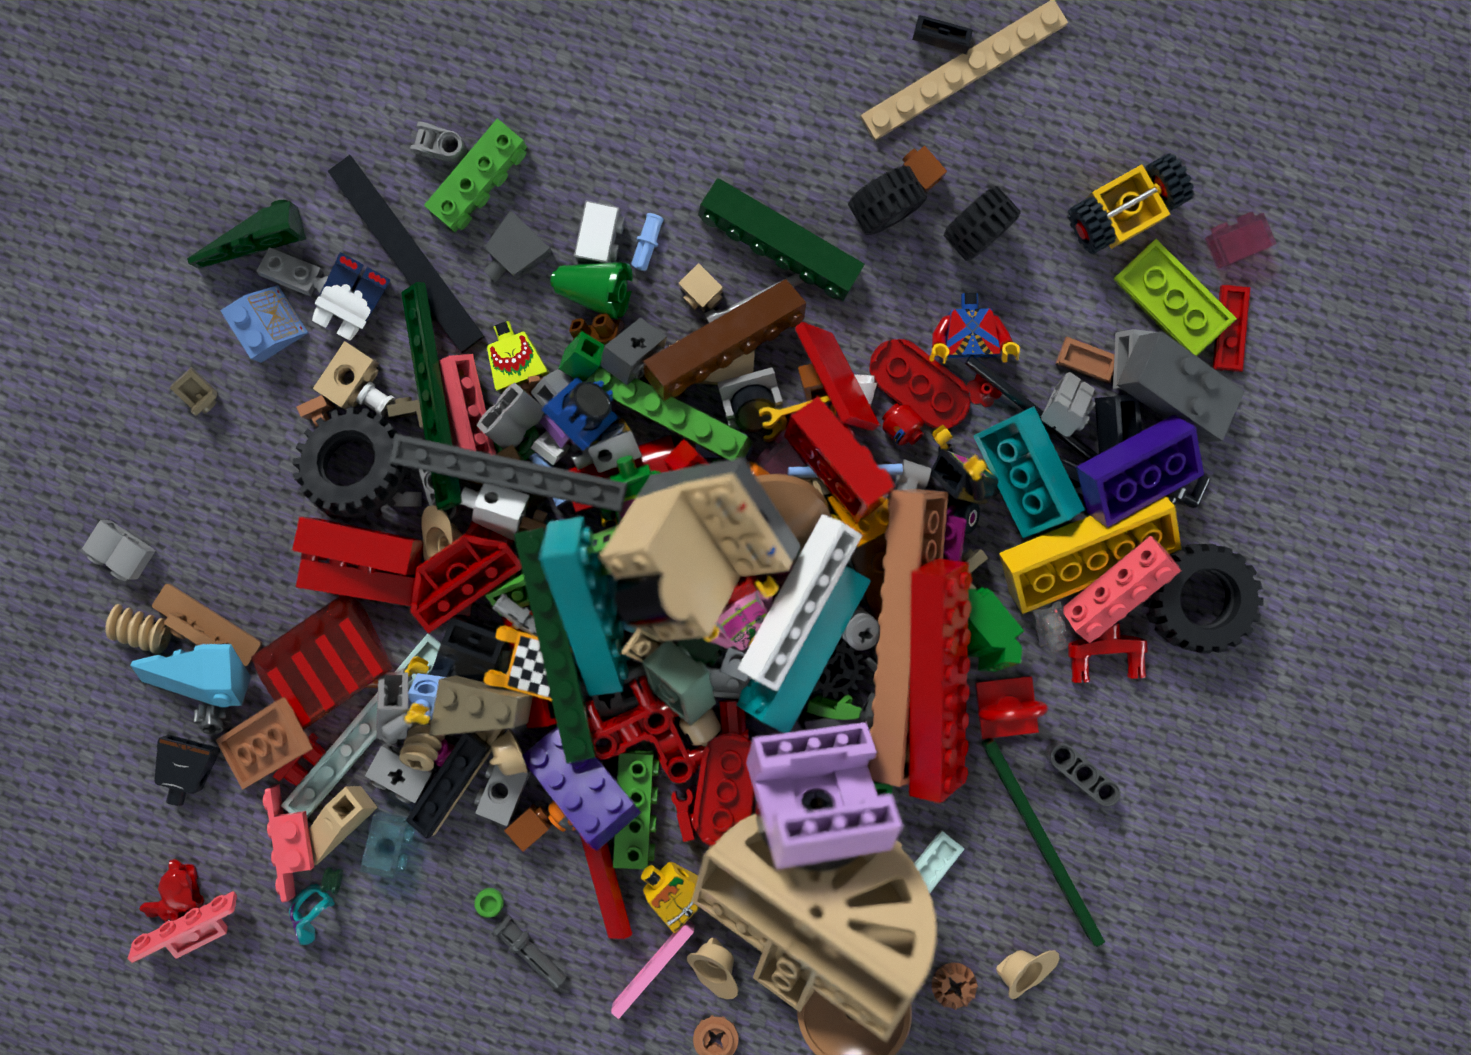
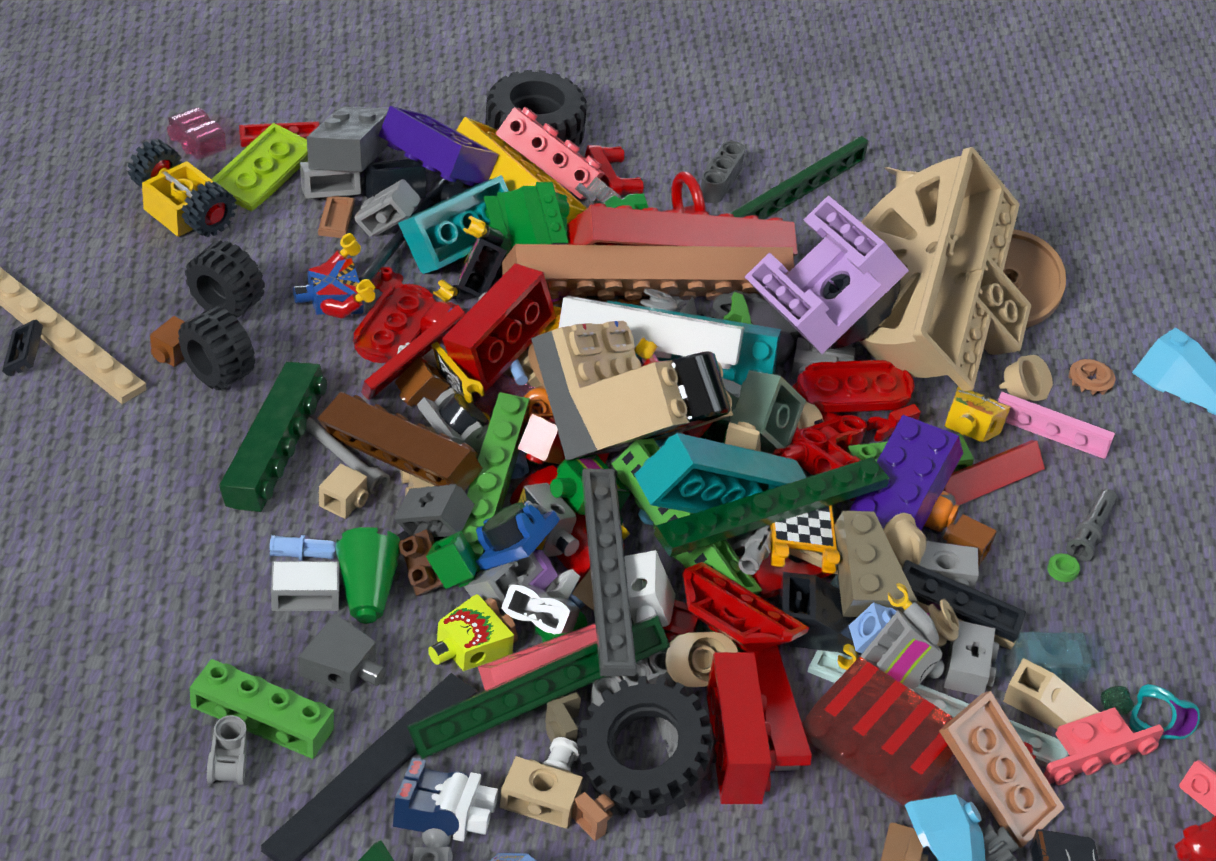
camera: 115 degrees left, 45 degrees down
(998, 534) = (529, 215): none -> green slope

